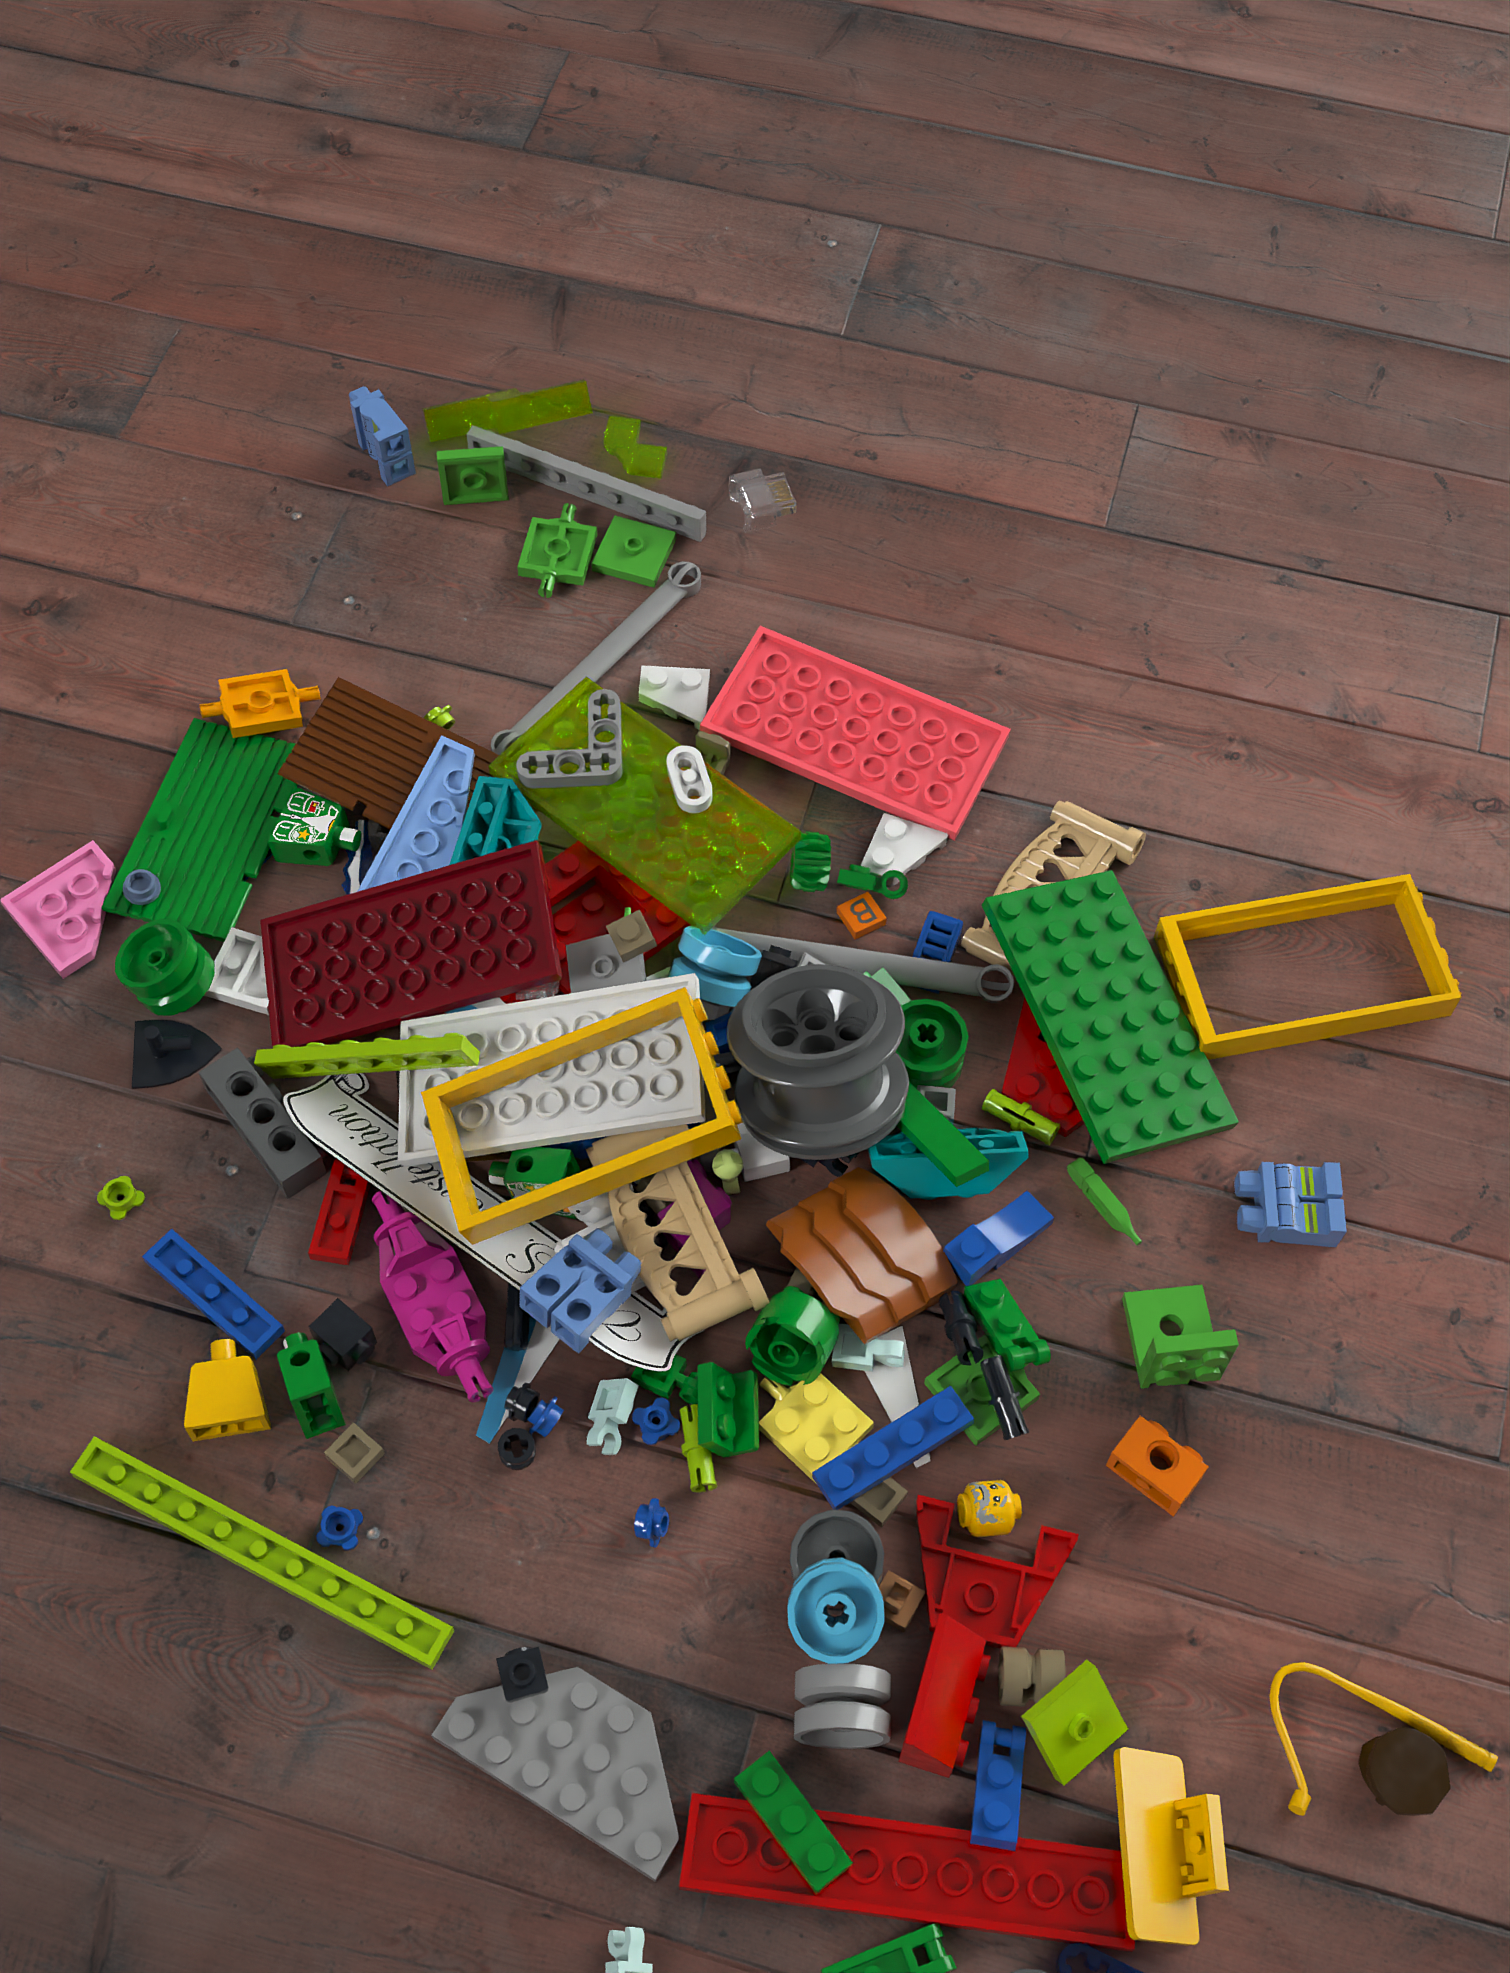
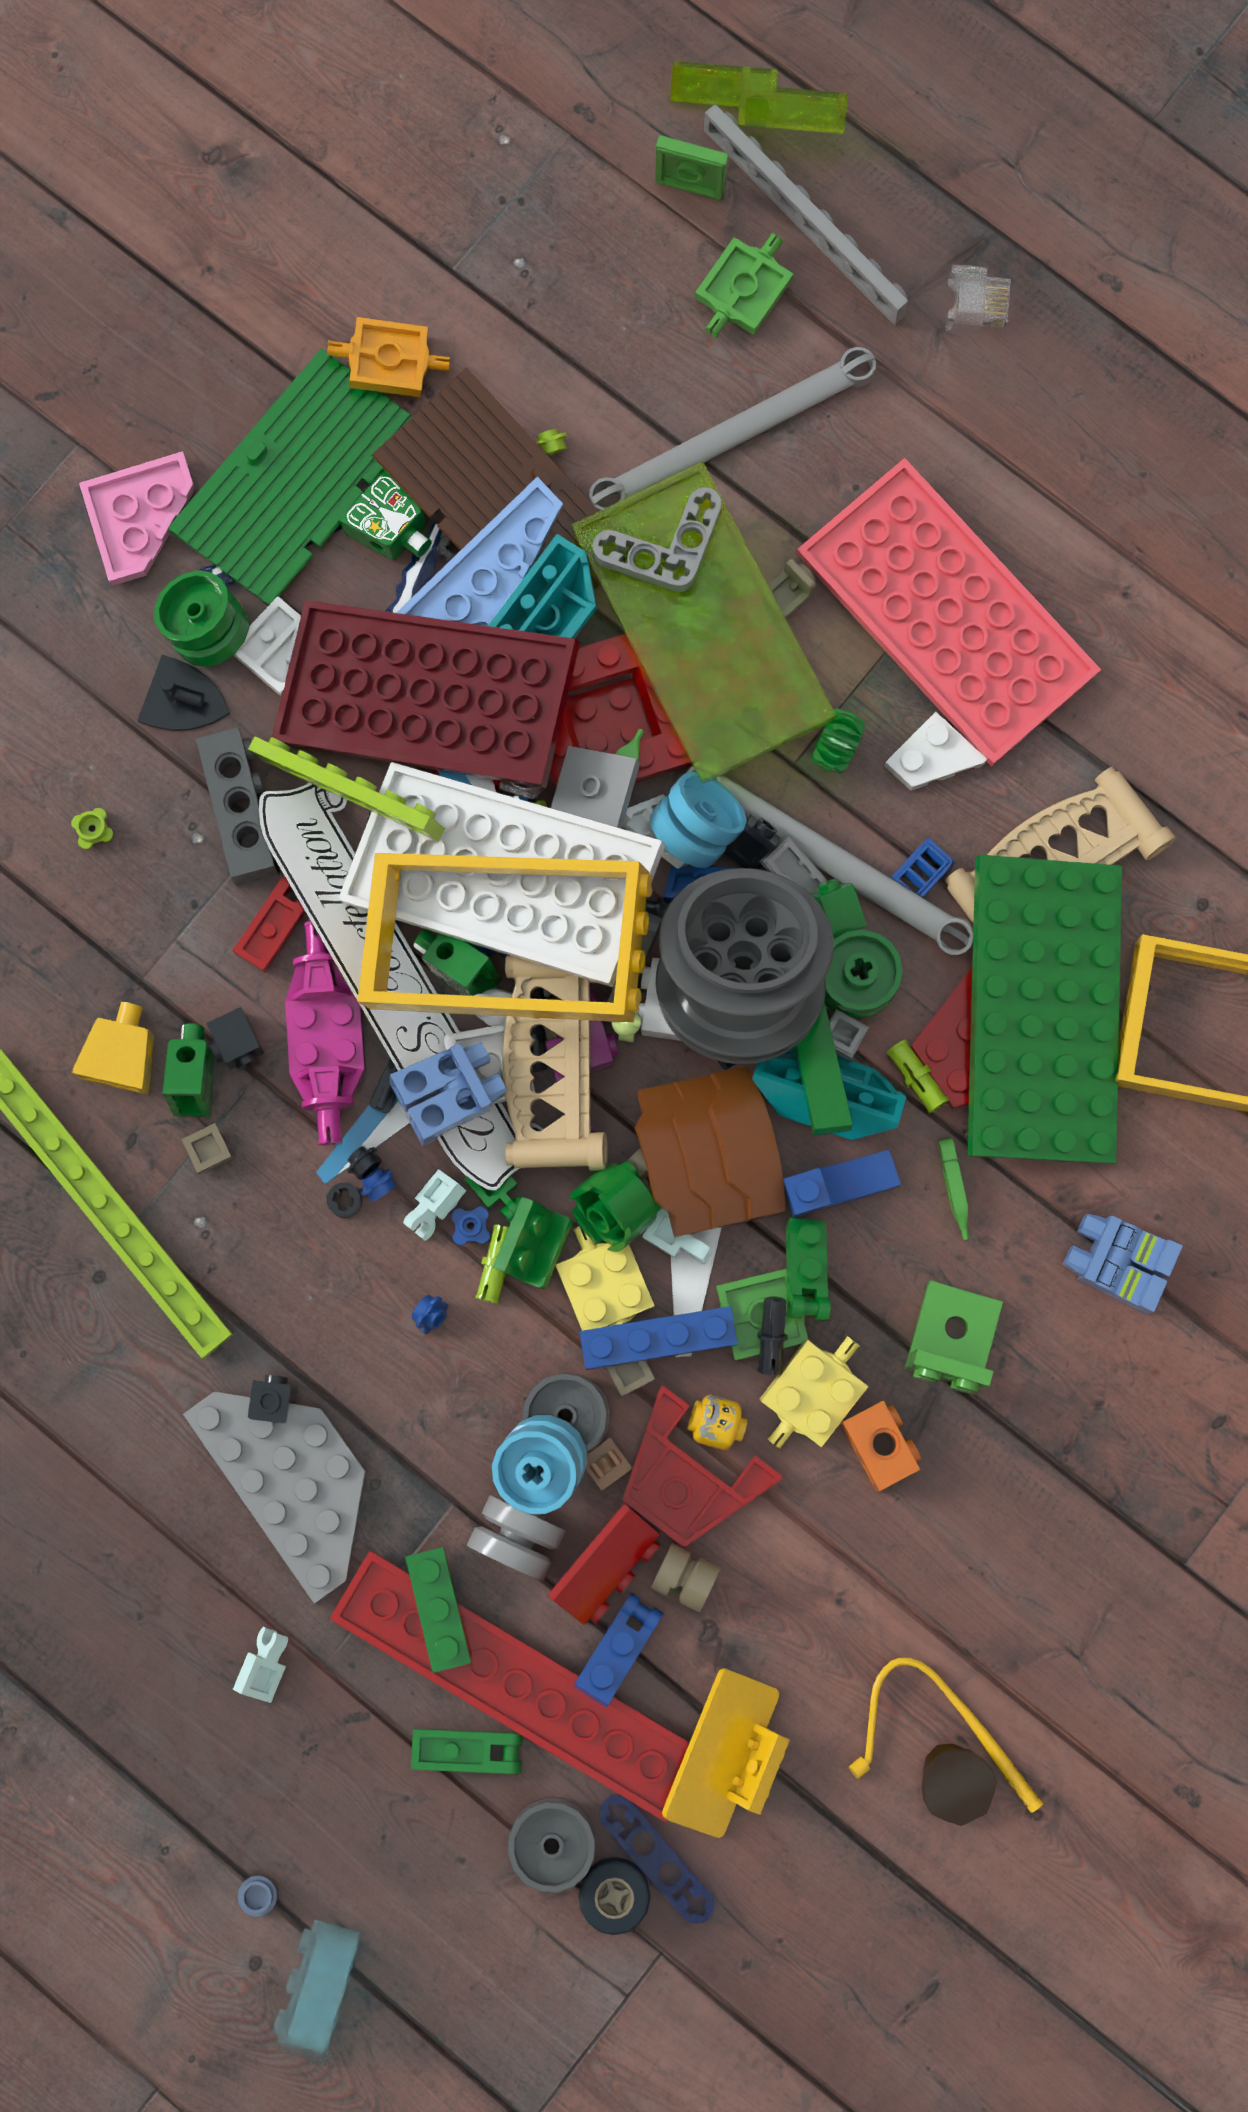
camera: 25 degrees right, 20 degrees up
(141, 887) = (208, 524): sand blue plate -> none
(214, 1294) = (140, 954): blue plate -> none
(331, 1518) = (172, 1197): blue plate -> none
(382, 434) = (620, 80): medium blue hips -> none
(631, 936) = (626, 768): dark tan plate -> none
(634, 551) = (821, 313): bright green plate -> none
(636, 458) = (872, 200): clear neon green tile -> none
(676, 691) = (795, 495): white wing -> none
(691, 781) = (751, 622): white plate -> none
(860, 878) = (880, 777): green plate -> none
(861, 915) = (865, 811): orange tile -> none
(960, 1328) = (767, 1255): black pin -> none
(1068, 1441) = (814, 1392): none -> light yellow plate
(1075, 1722) = (702, 1630): lime plate -> none

